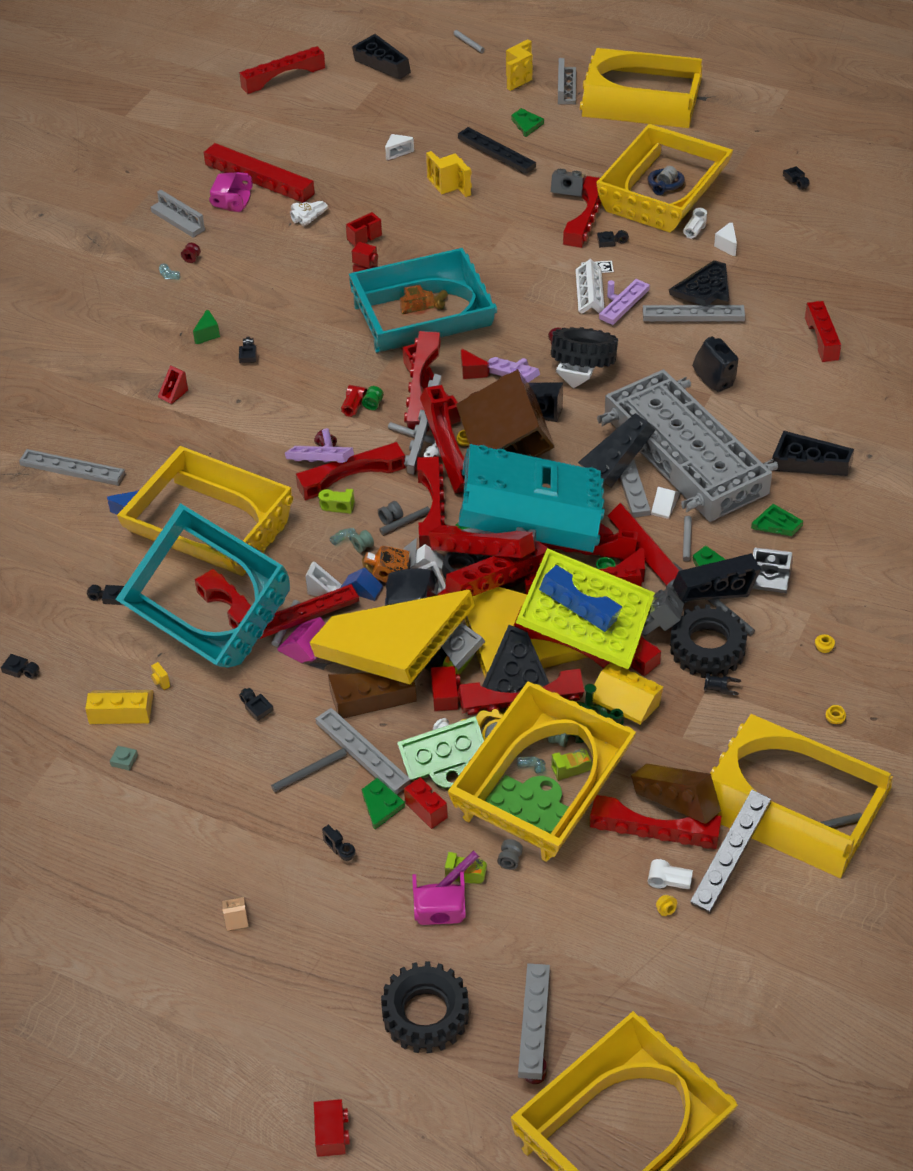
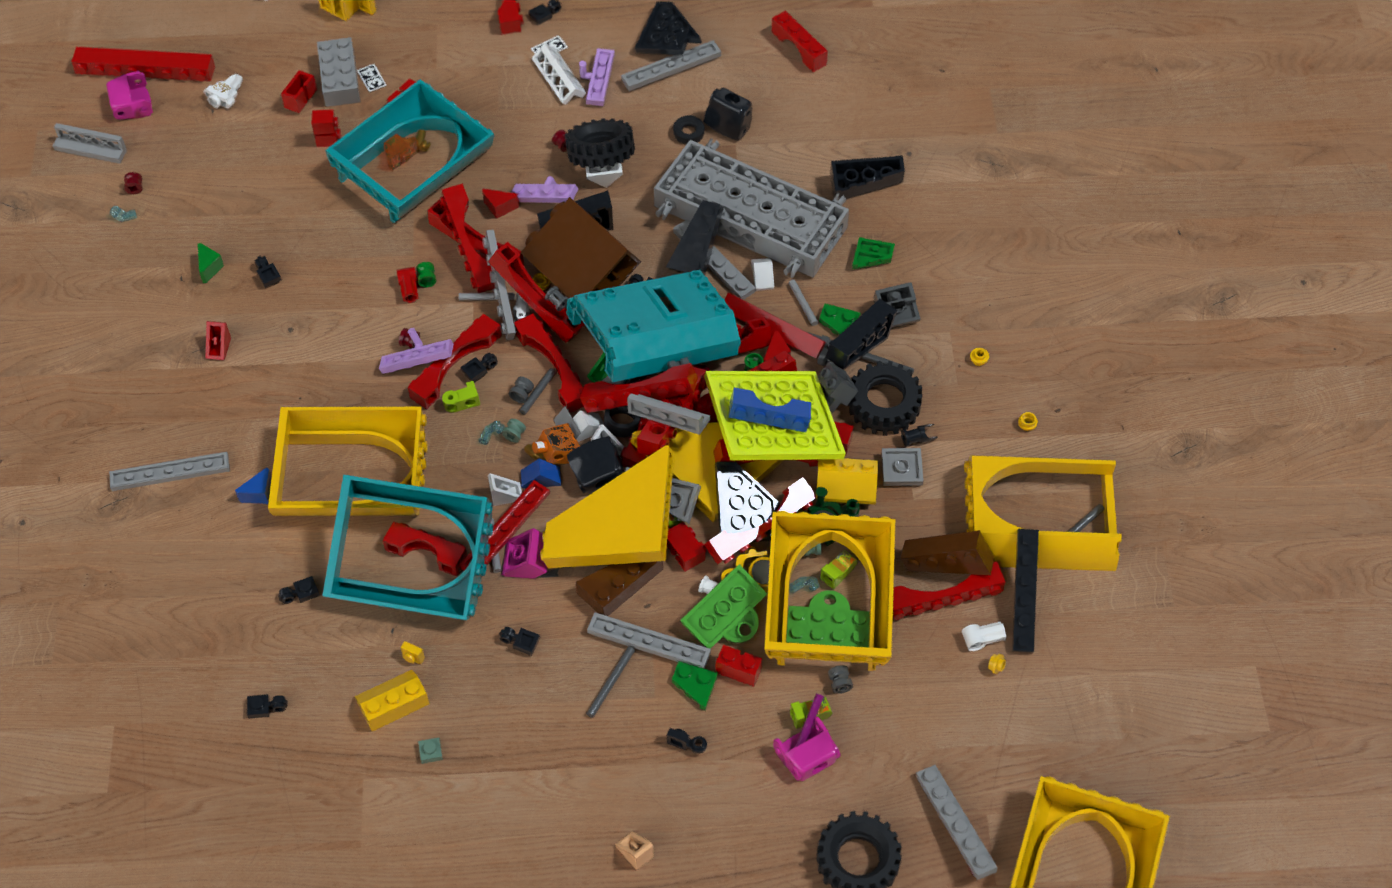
camera: 30 degrees left, 10 degrees up
(364, 483) = (476, 369): none -> black plate
(406, 226) = (338, 72): none -> light grey brick
(432, 241) = (371, 77): none -> white sticker
(460, 449) = (552, 294): none -> dark grey bush
(486, 565) = (667, 413): none -> light grey fence
(678, 360) = (691, 121): none -> black tyre
(687, 704) = (902, 467): none -> light grey plate

